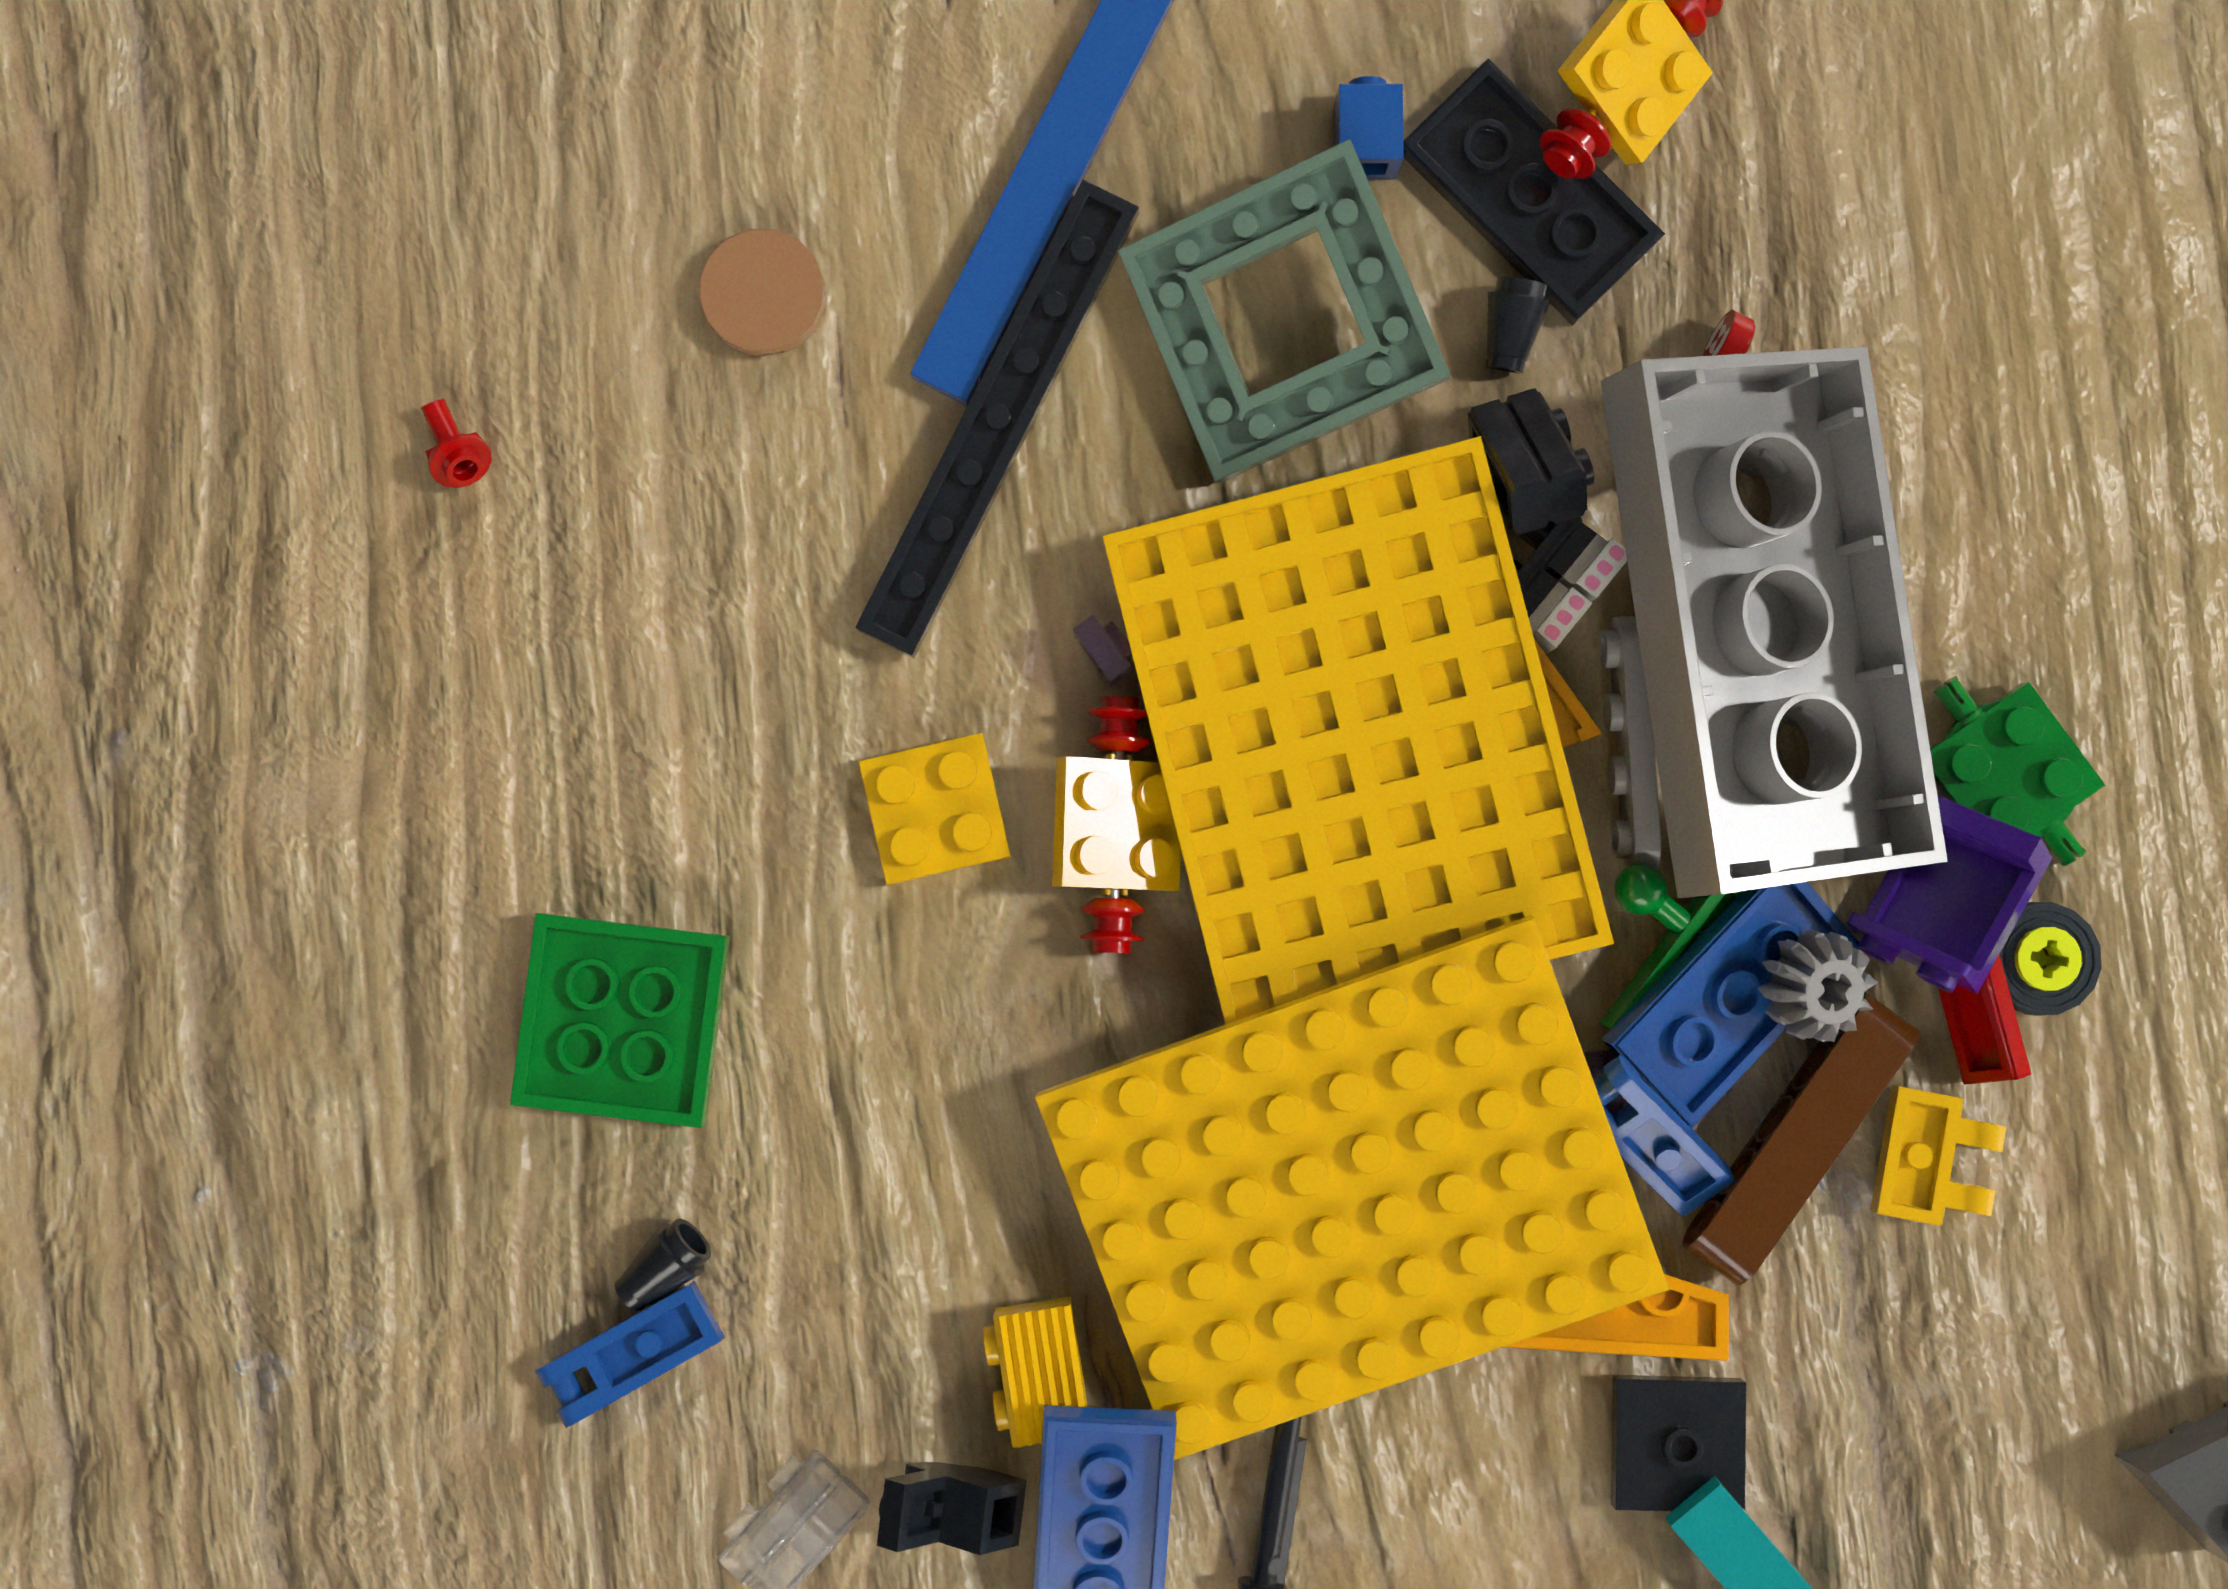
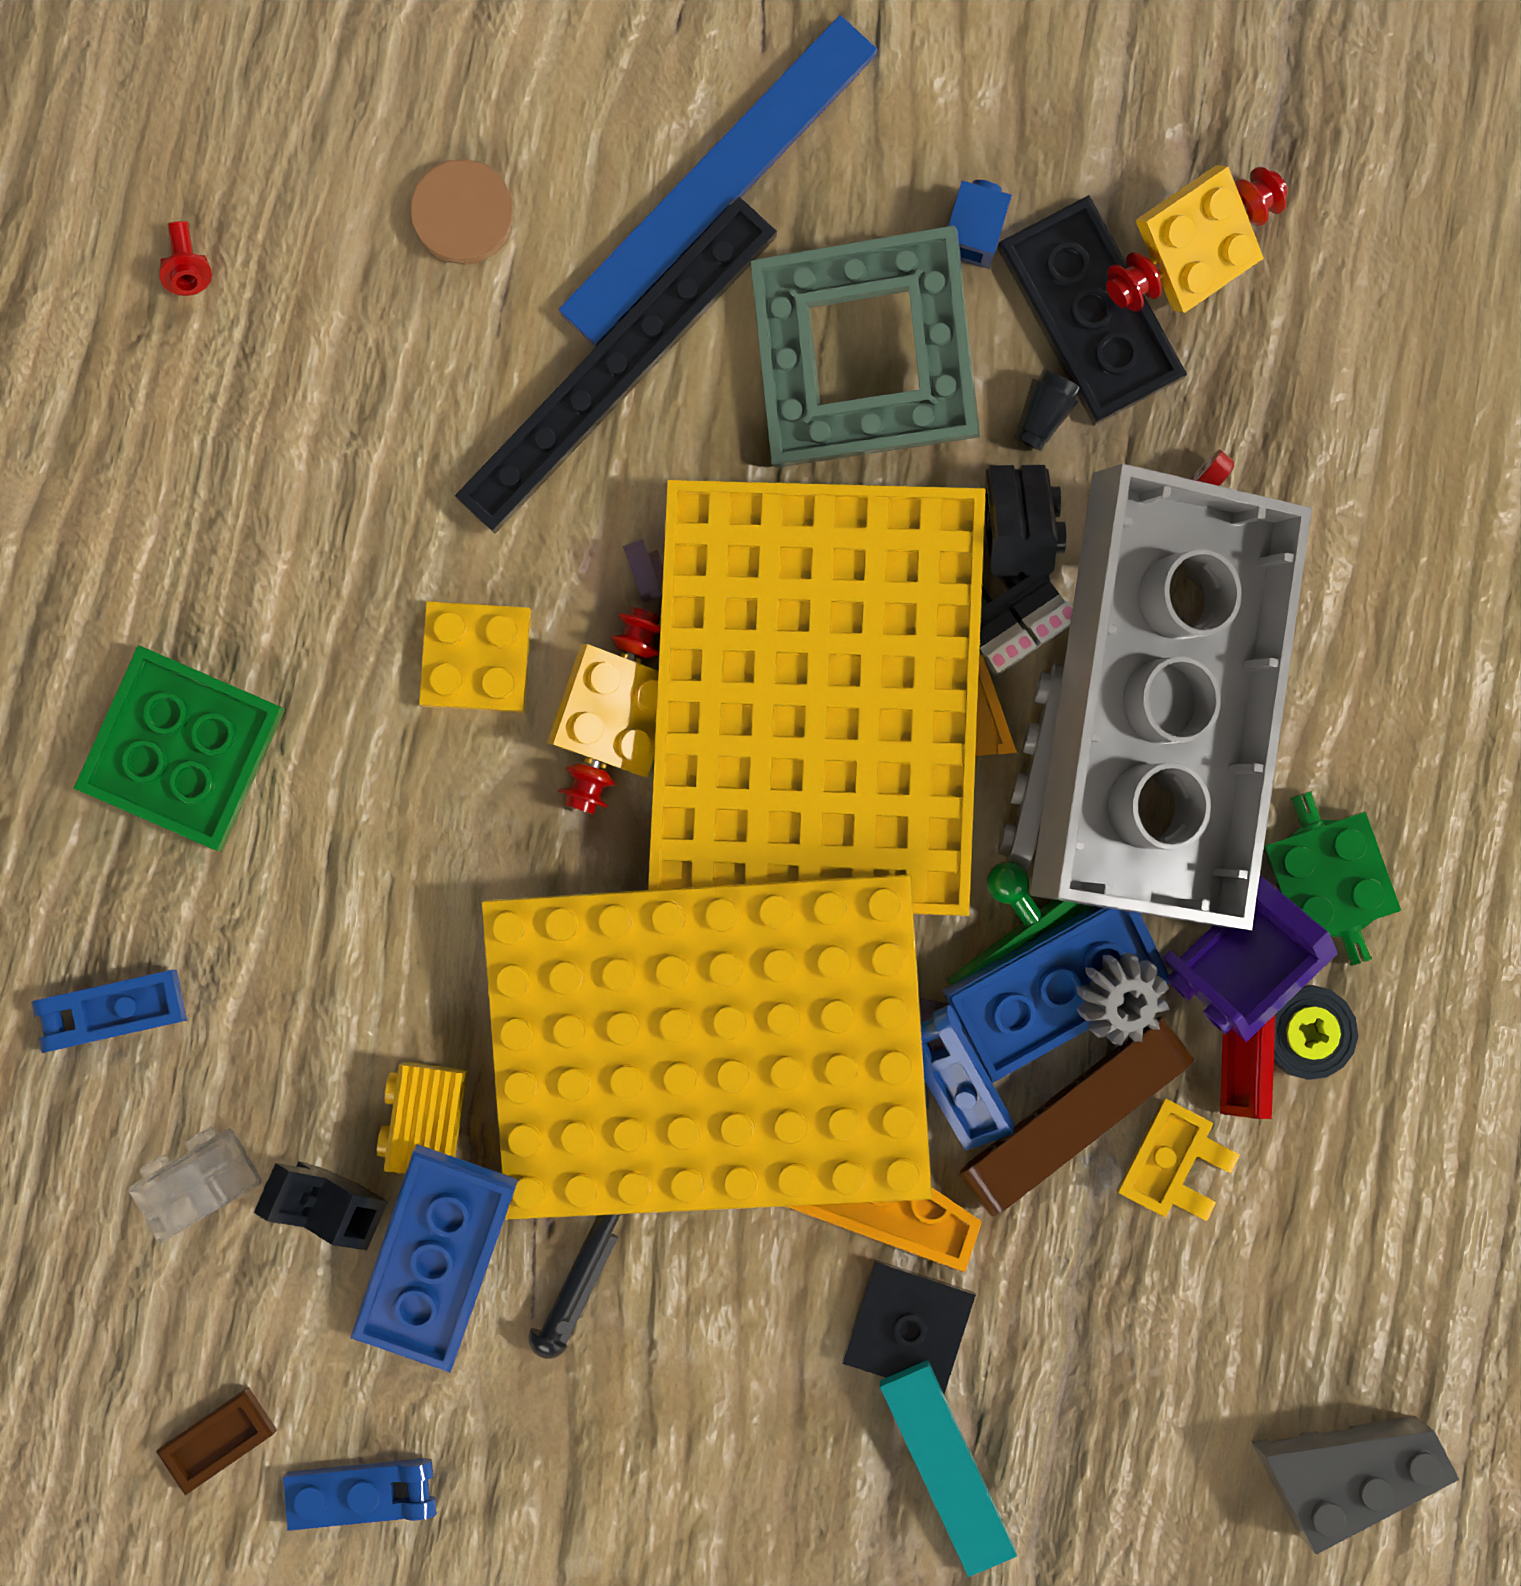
camera: 15 degrees right, 0 degrees up
(664, 1263) = (157, 948): black cone -> none

